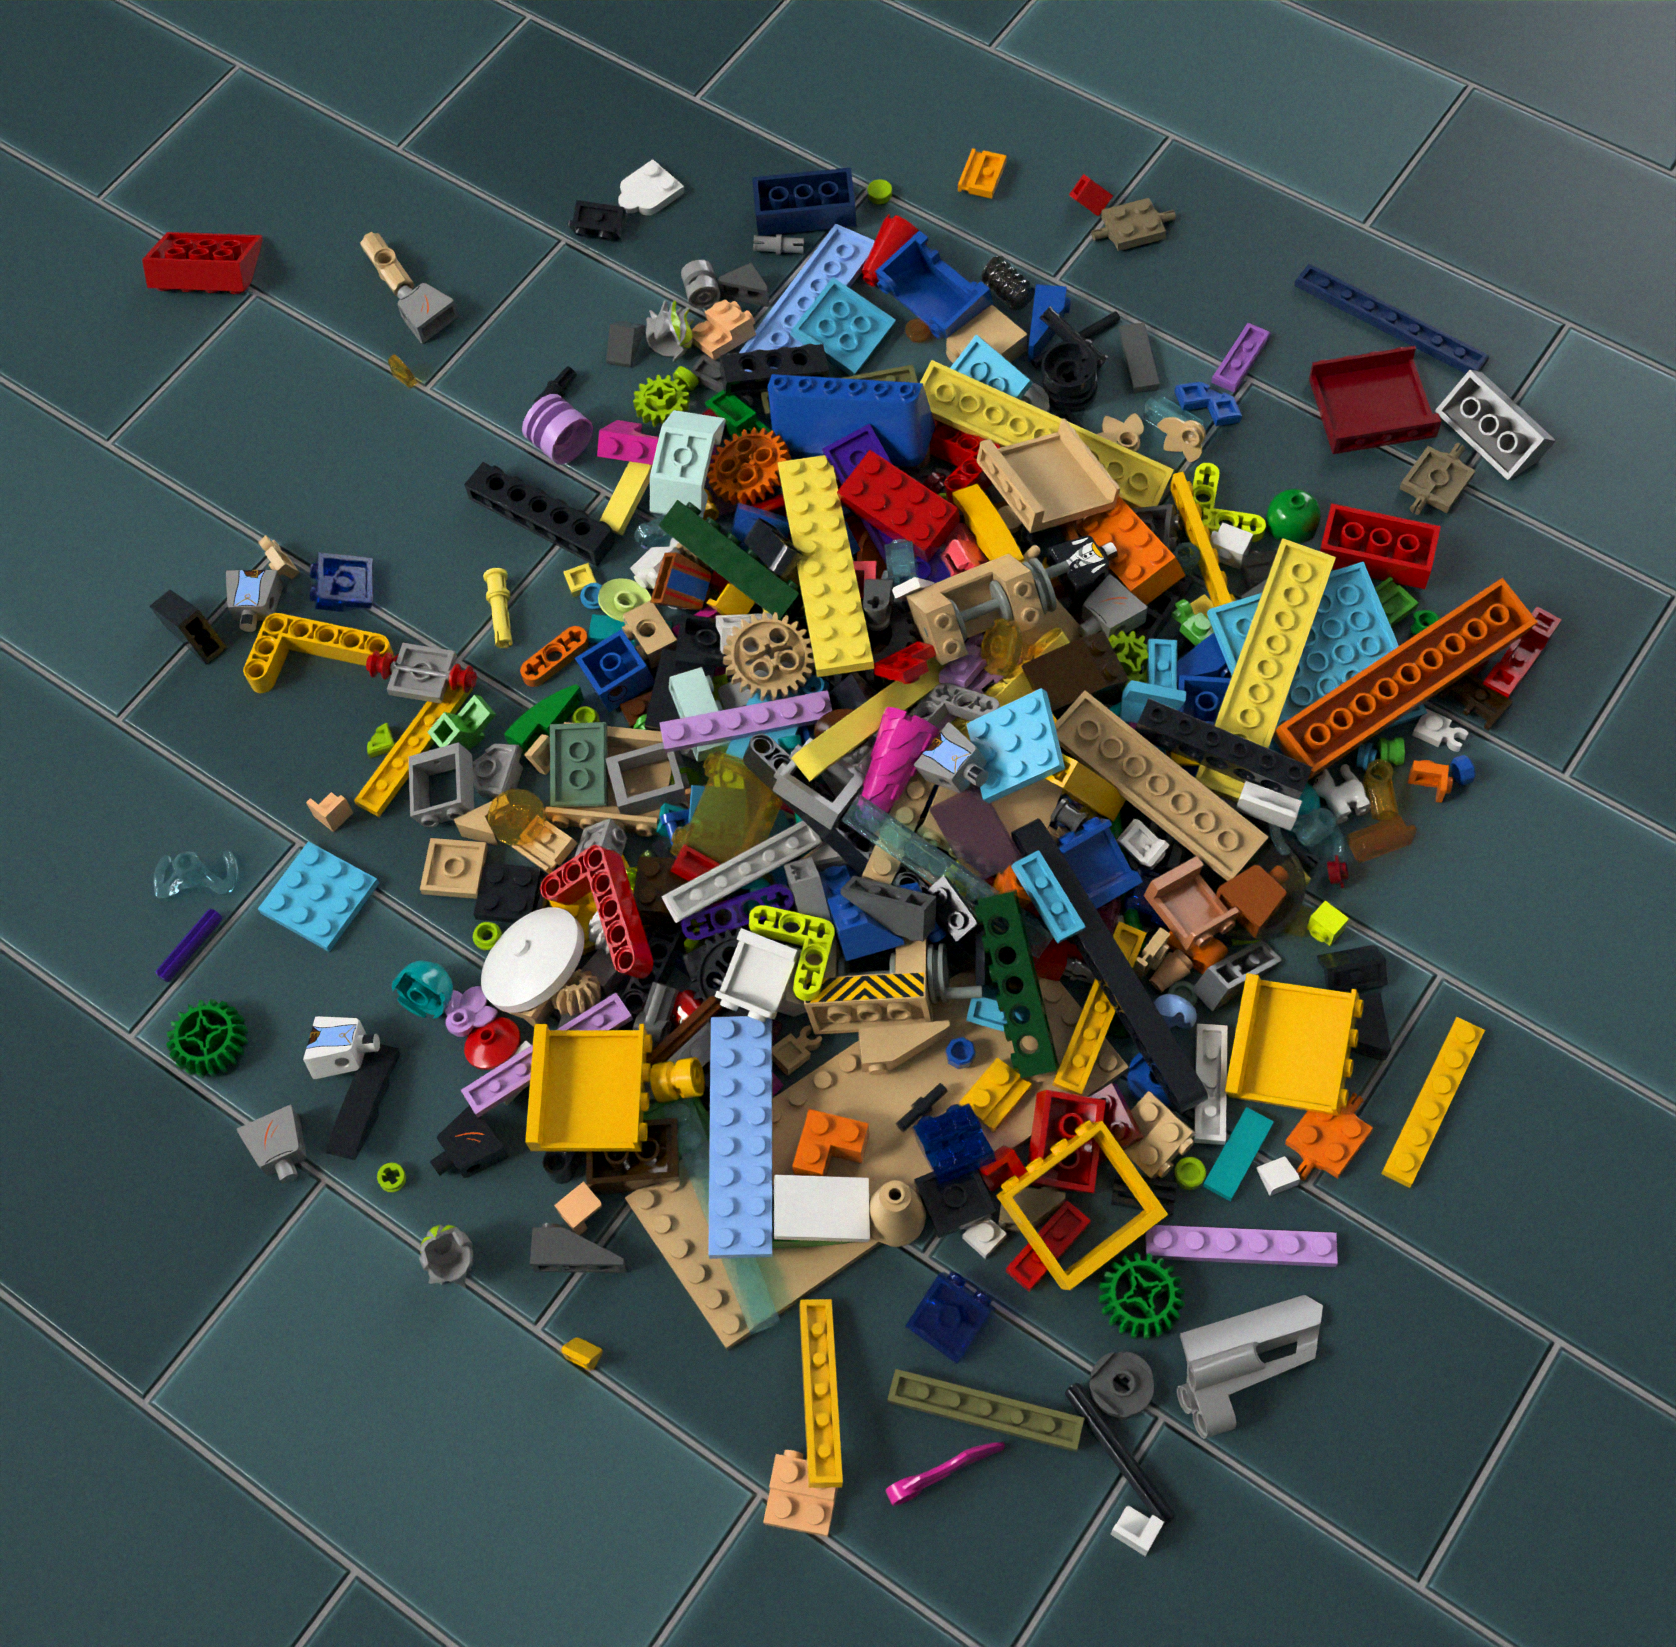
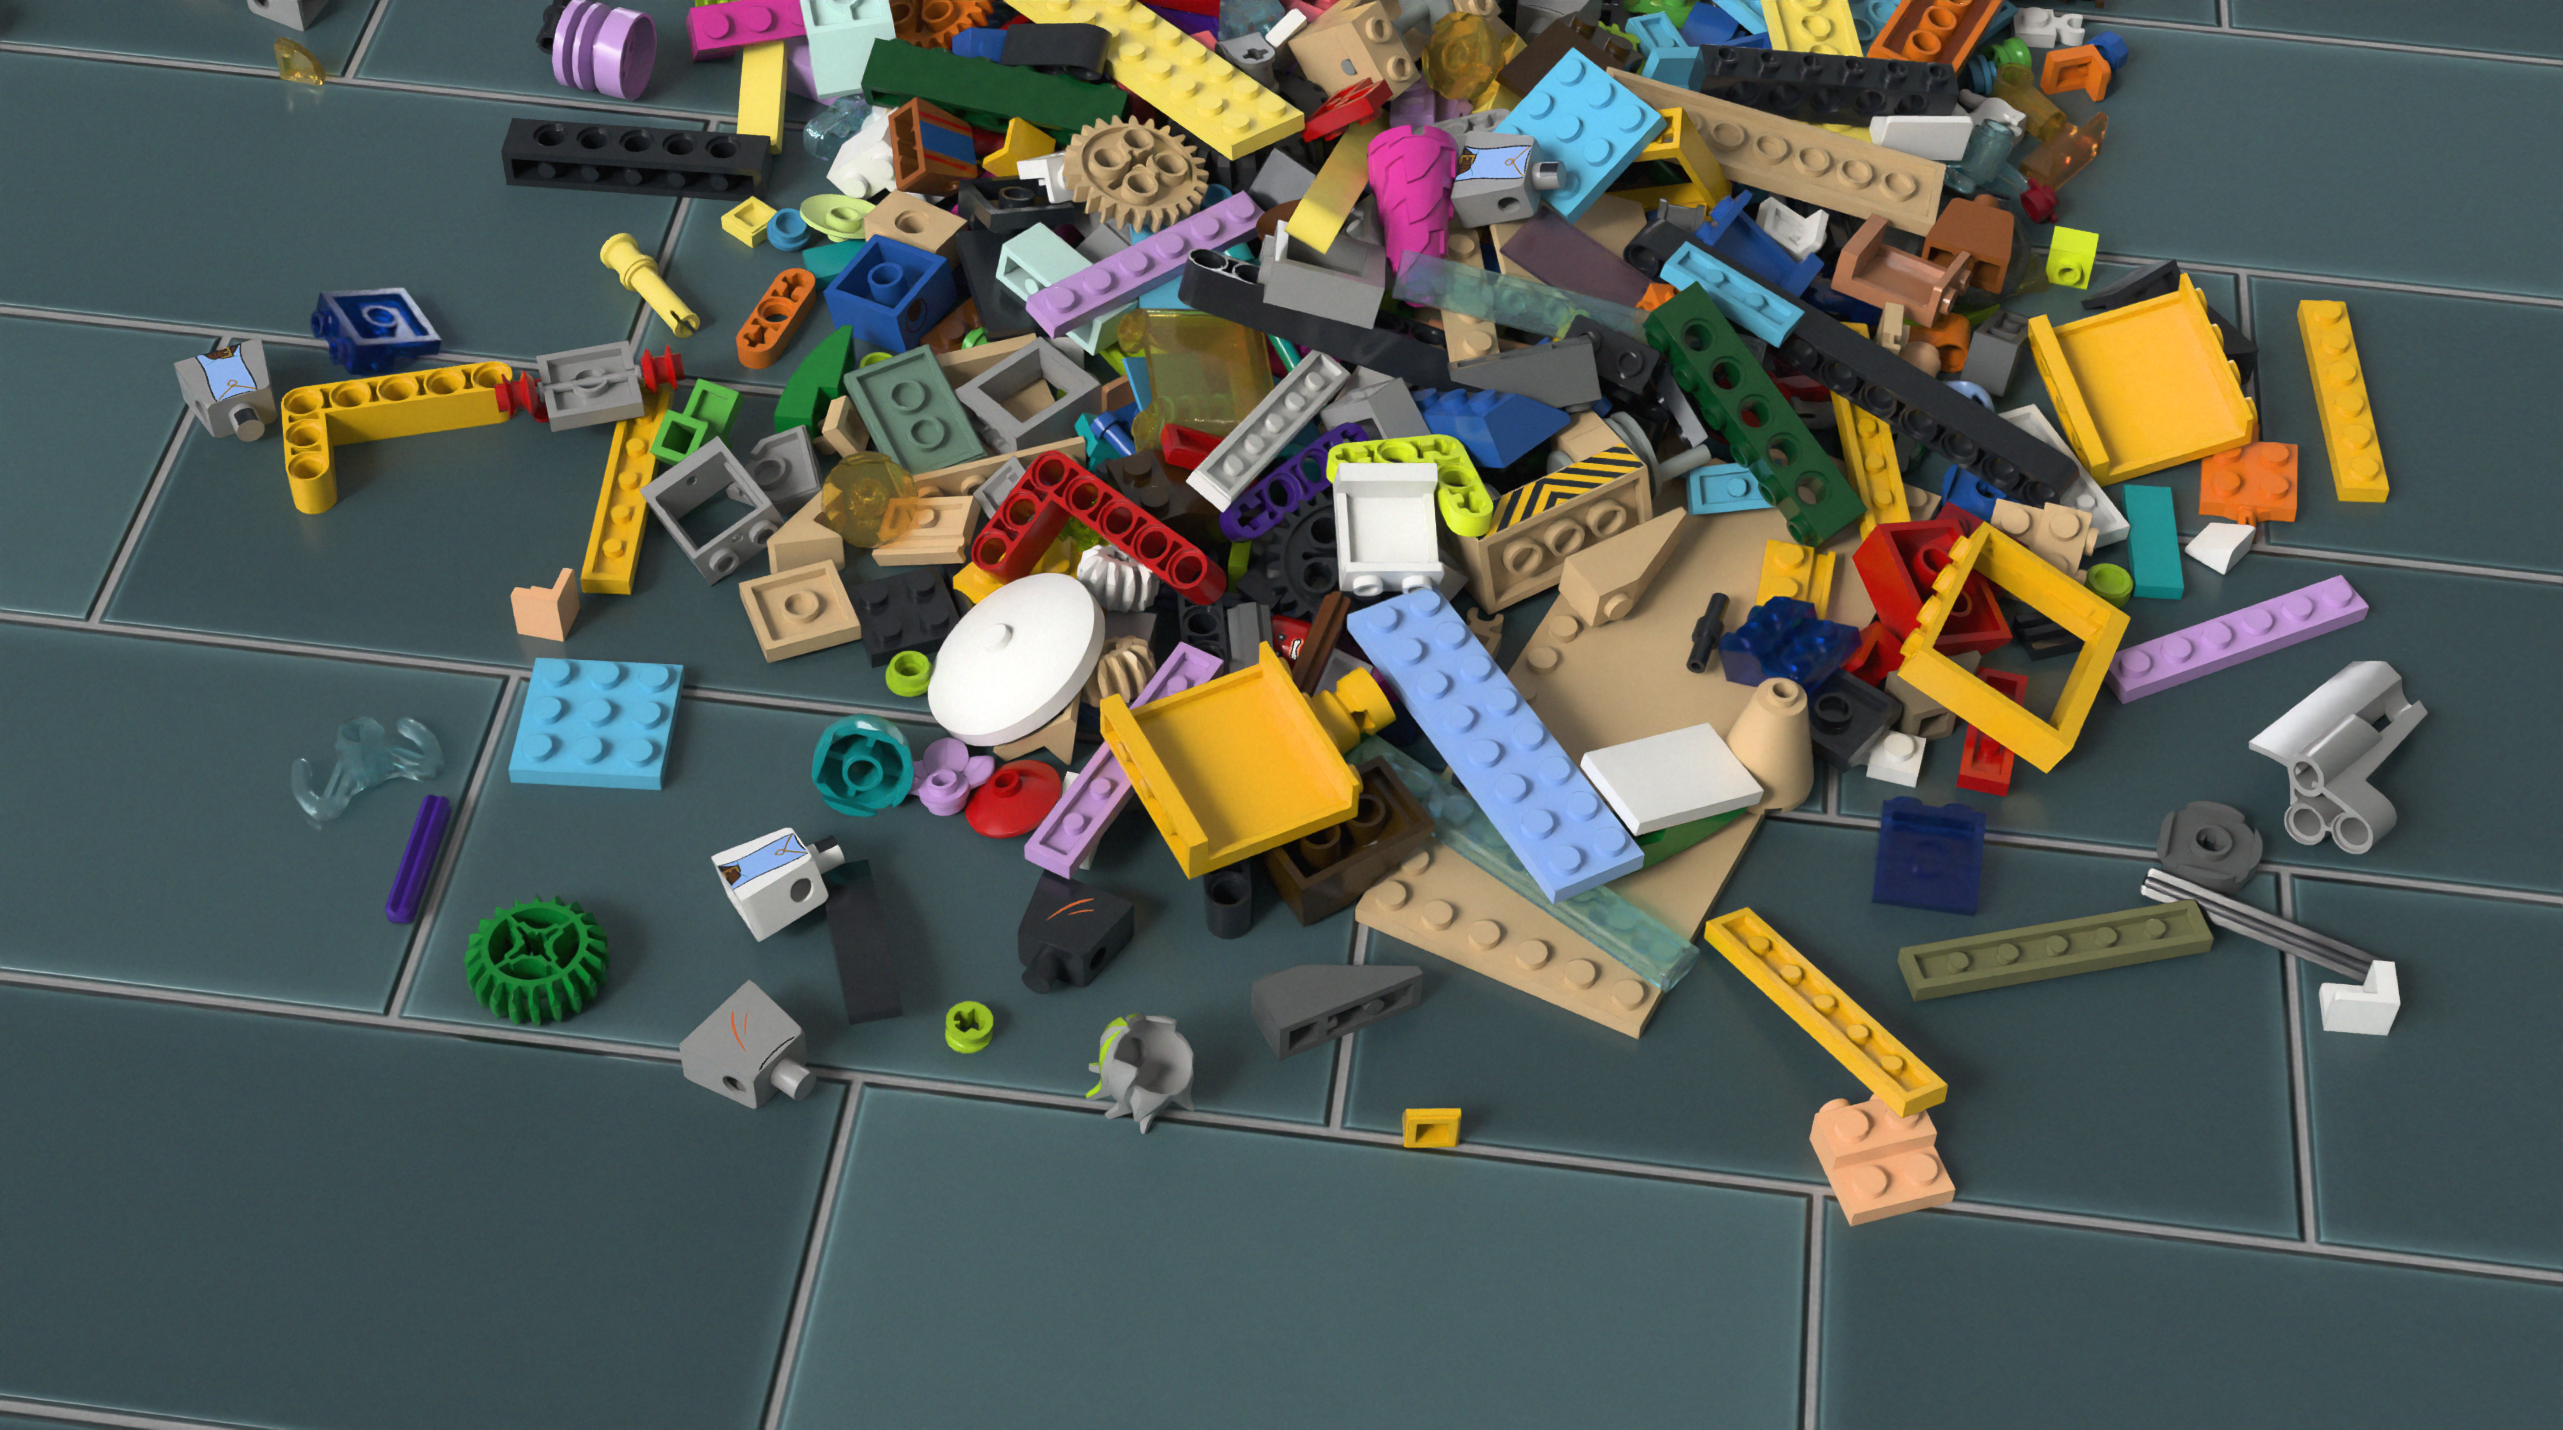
camera: 35 degrees left, 15 degrees down
(188, 626) = (147, 454): black slope -> none
(279, 560) = (245, 328): tan plate -> none
(381, 741) = (570, 503): lime tile -> none
(578, 1207) = (1298, 936): light nougat panel -> none
(829, 1136) = (1618, 703): orange brick -> none
(912, 1486) = (2028, 1075): dark pink piece -> none
(960, 1053) = (1714, 552): blue tile -> none
(1146, 1308) = (2157, 736): green gear -> none

